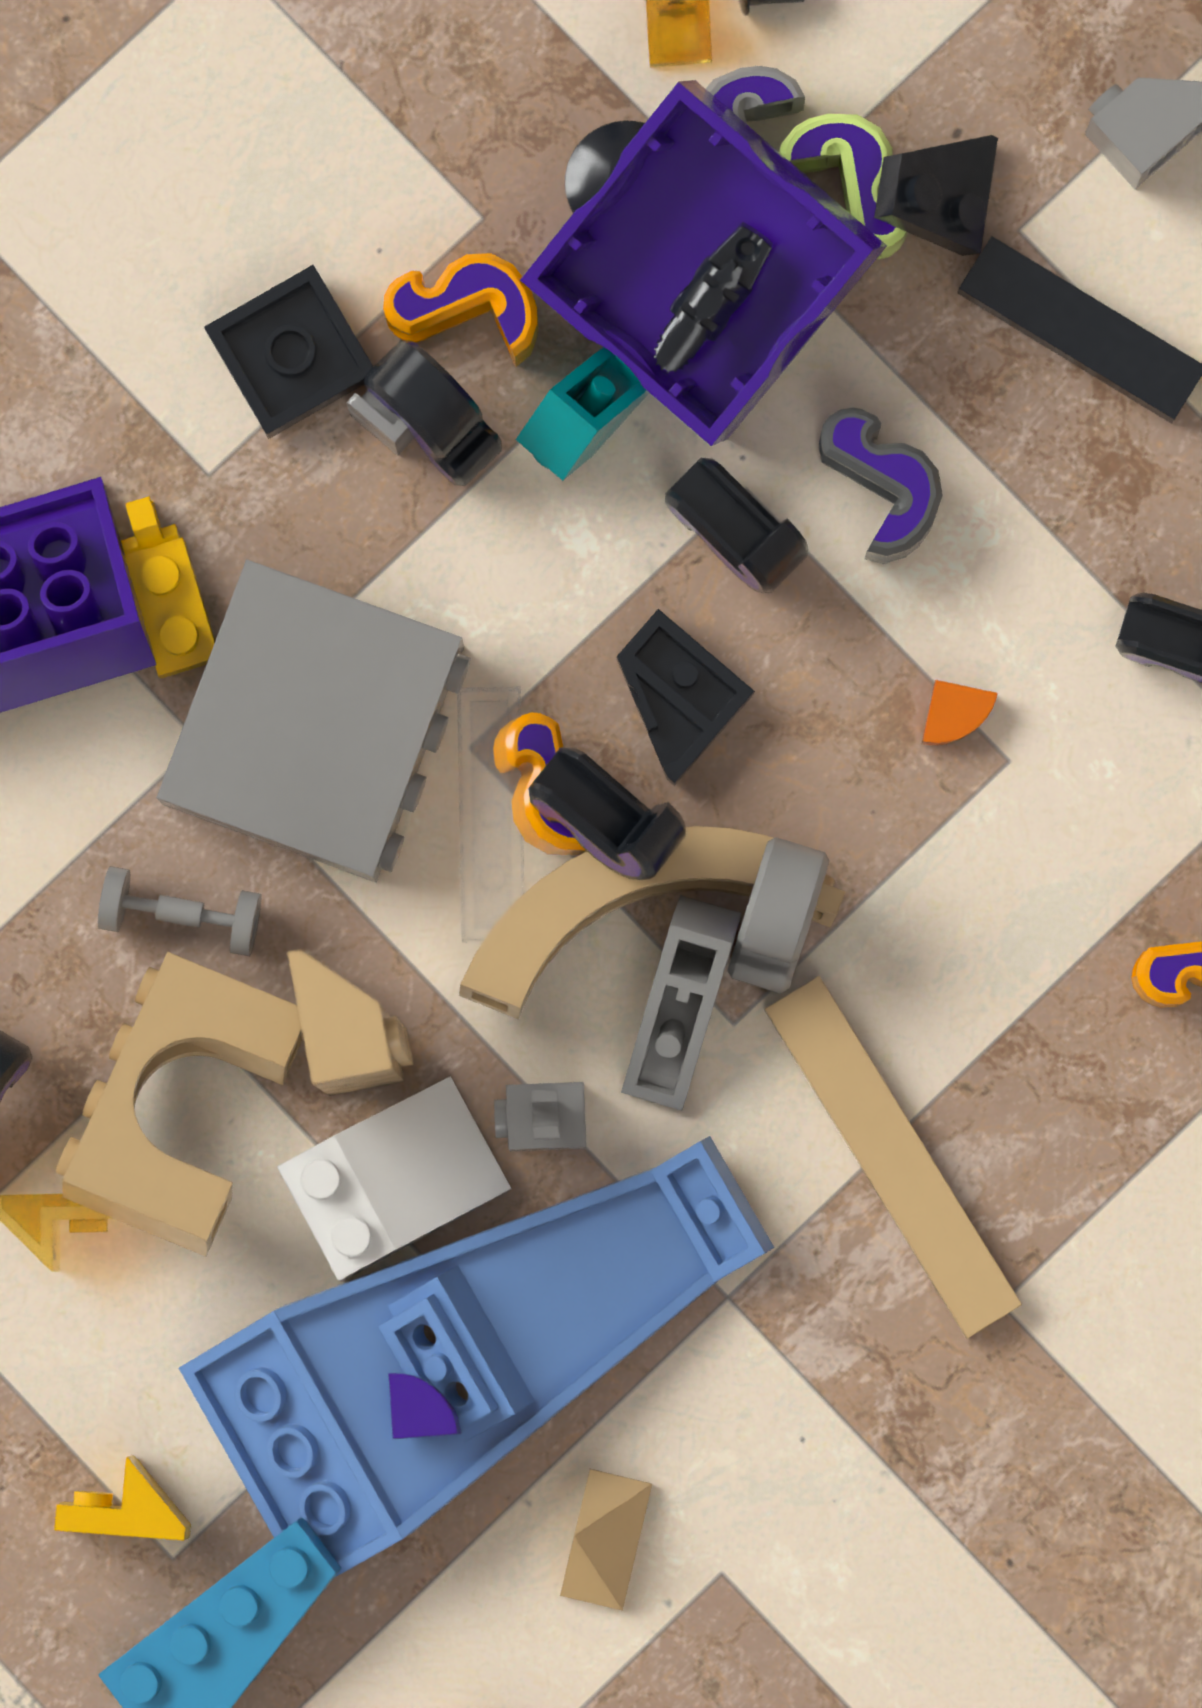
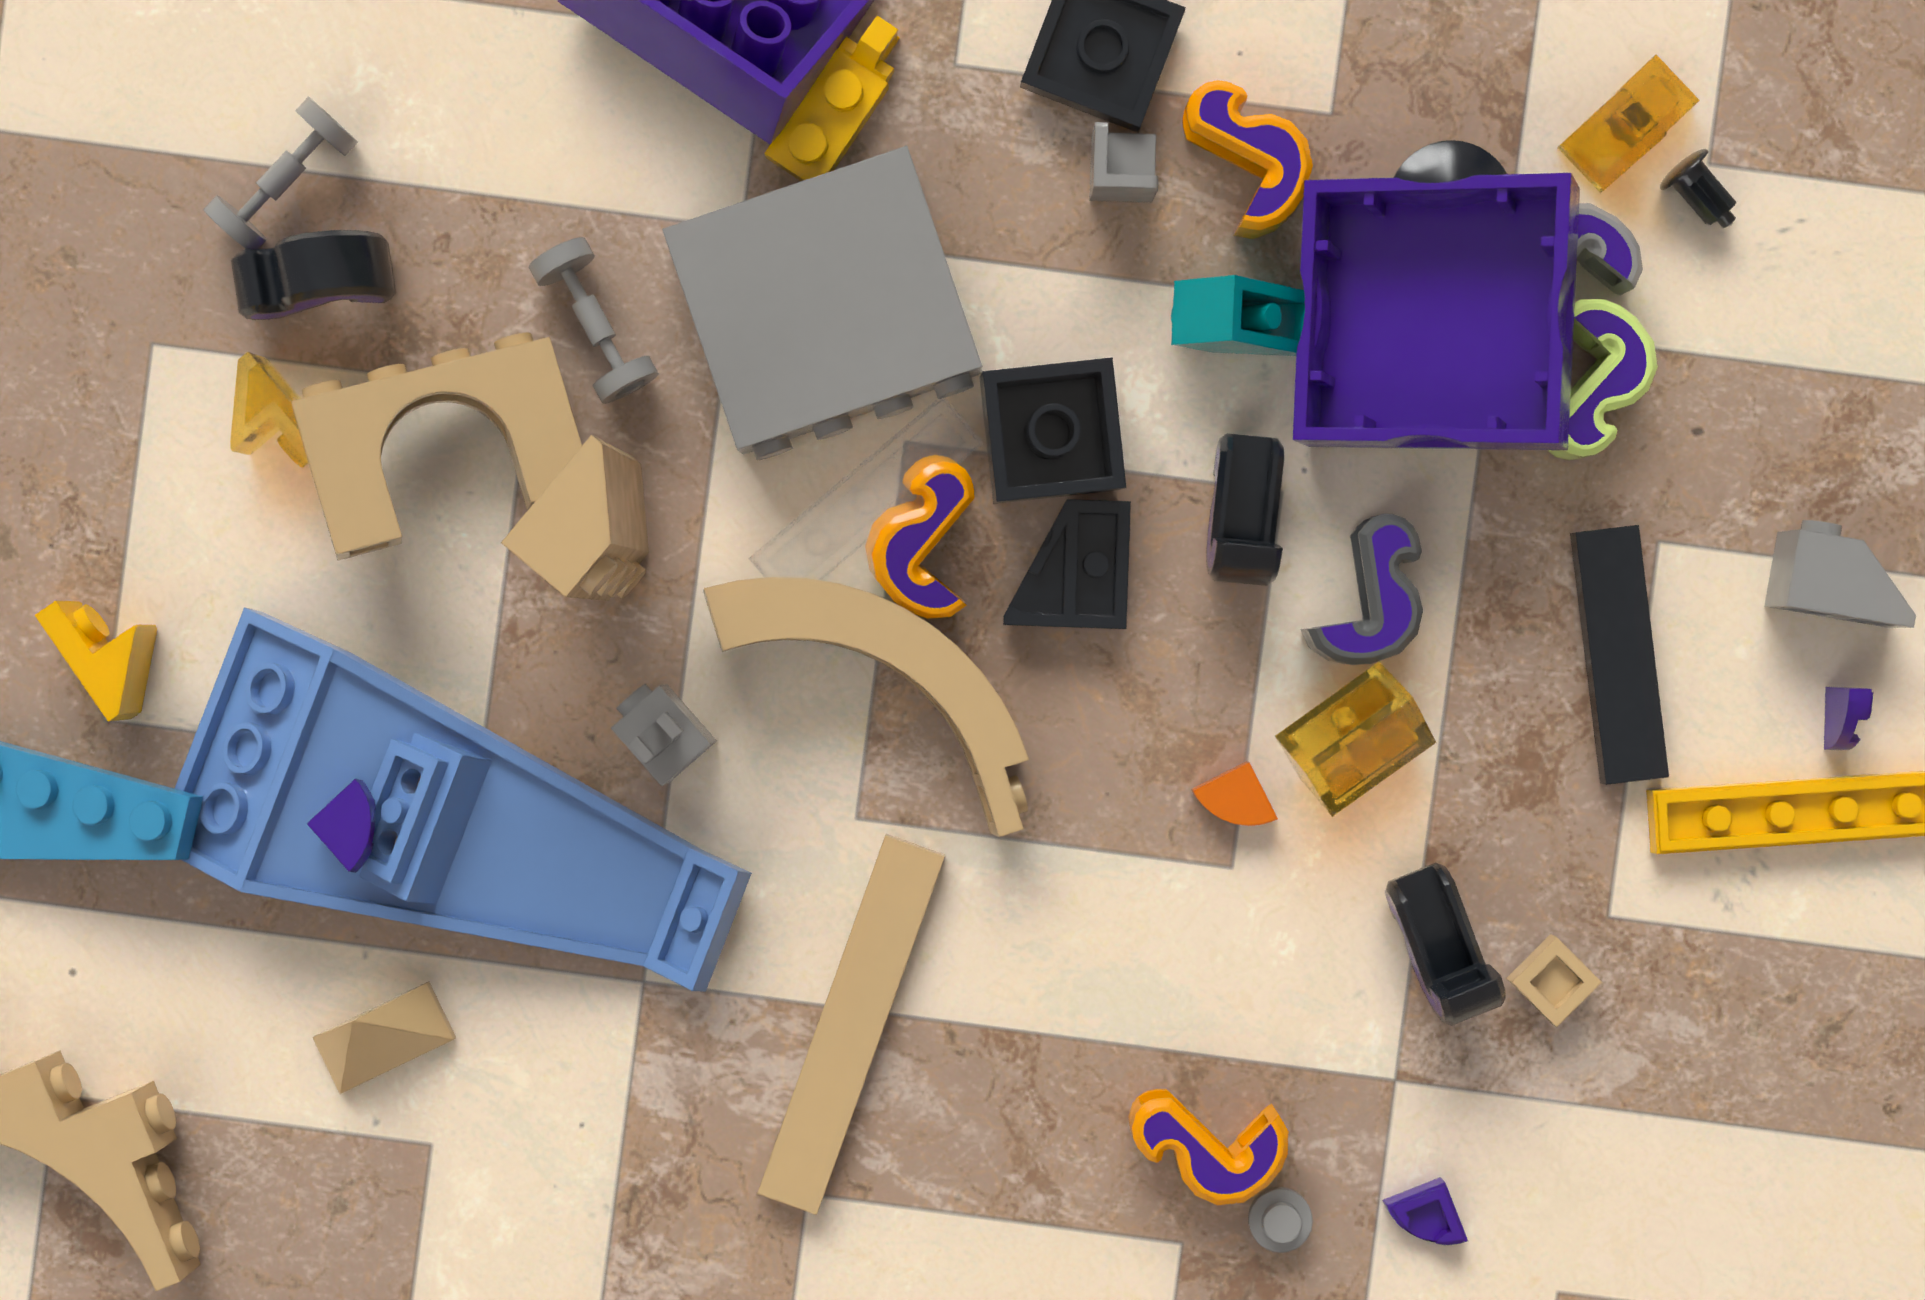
camera: 45 degrees right, 5 degrees up
(394, 1178) = (519, 655): white slope -> none
(435, 411) = (1144, 197): black animal -> none
(555, 624) = (1052, 430): none -> black brick
(606, 815) = (928, 596): black animal -> none
(681, 1002) = (839, 767): light grey slope -> none
(712, 296) = (1414, 344): black hinge -> none
(778, 915) = (964, 791): light grey animal -> none
(940, 193) = (1642, 457): black wing -> none
(982, 582) = (1356, 738): none -> clear yellow brick

